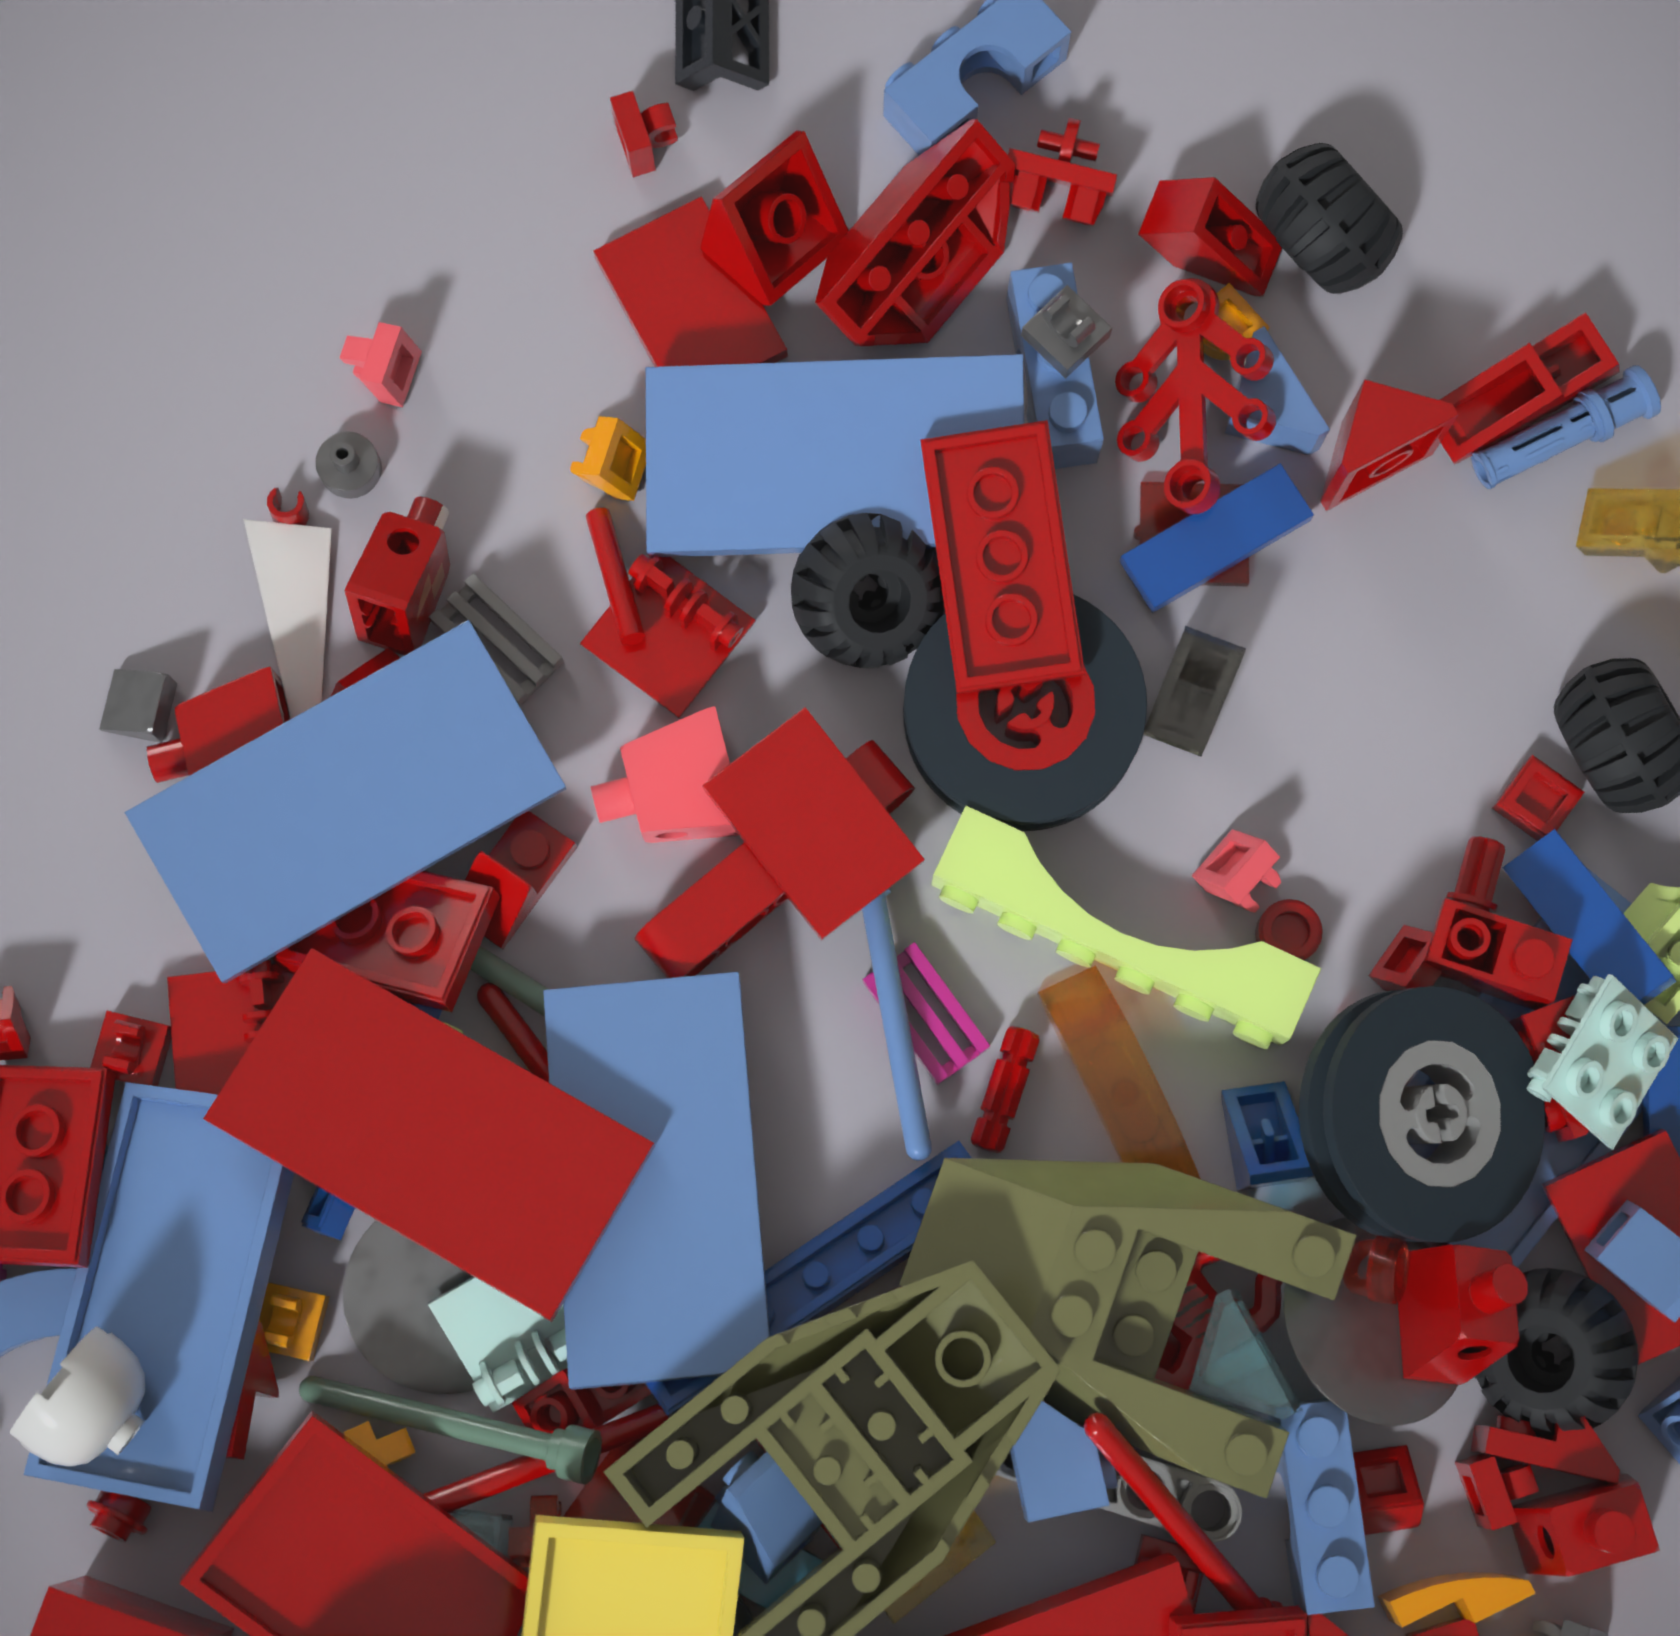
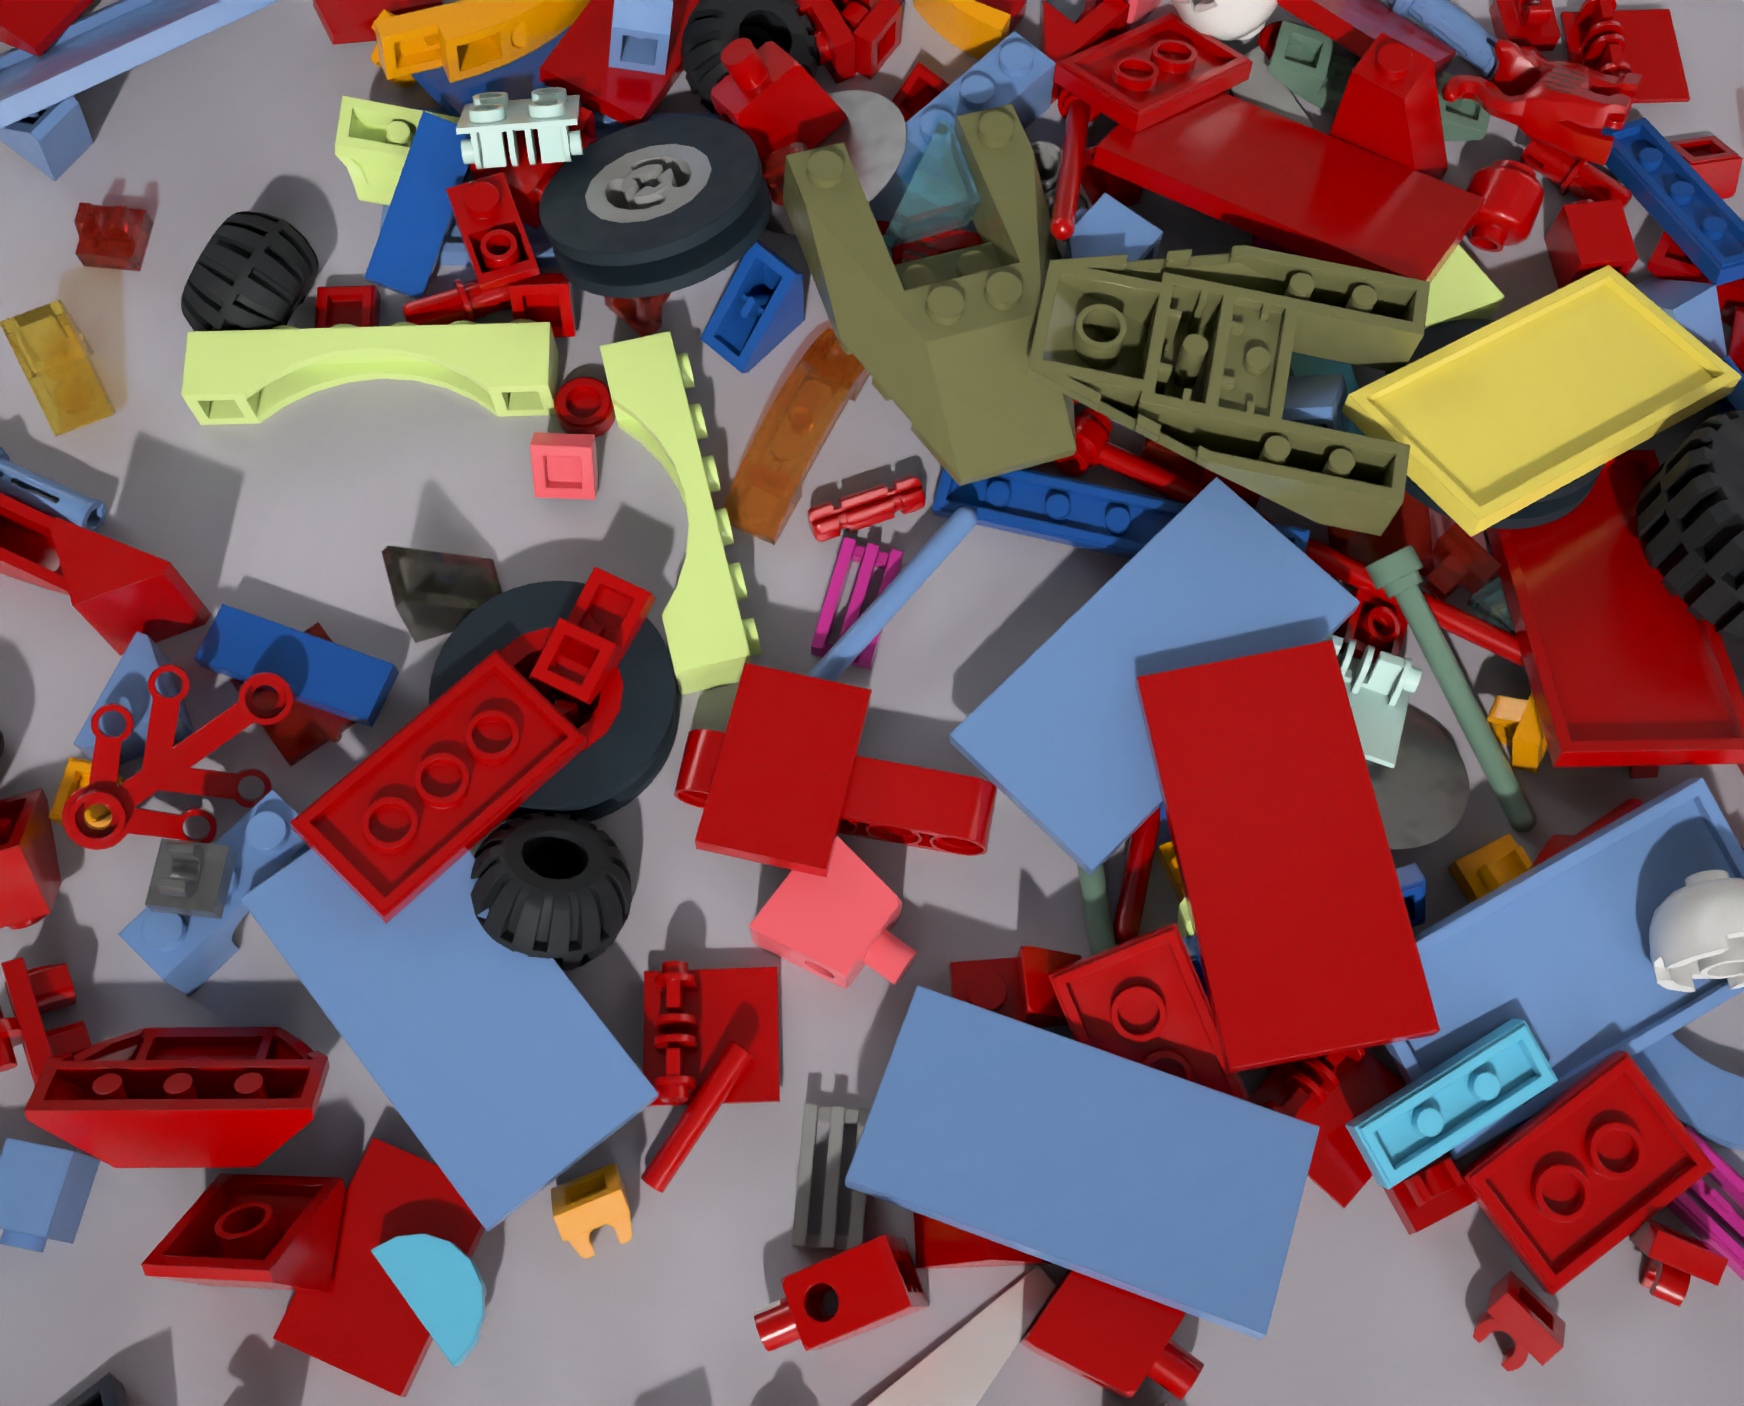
camera: 130 degrees left, 10 degrees down
(159, 1106) = (1451, 1103): none -> medium azure tile
(640, 319) = (440, 1288): none -> medium azure tile
(1043, 761) = (594, 637): none -> red slope
(1525, 678) = (258, 372): none -> yellowish green arch

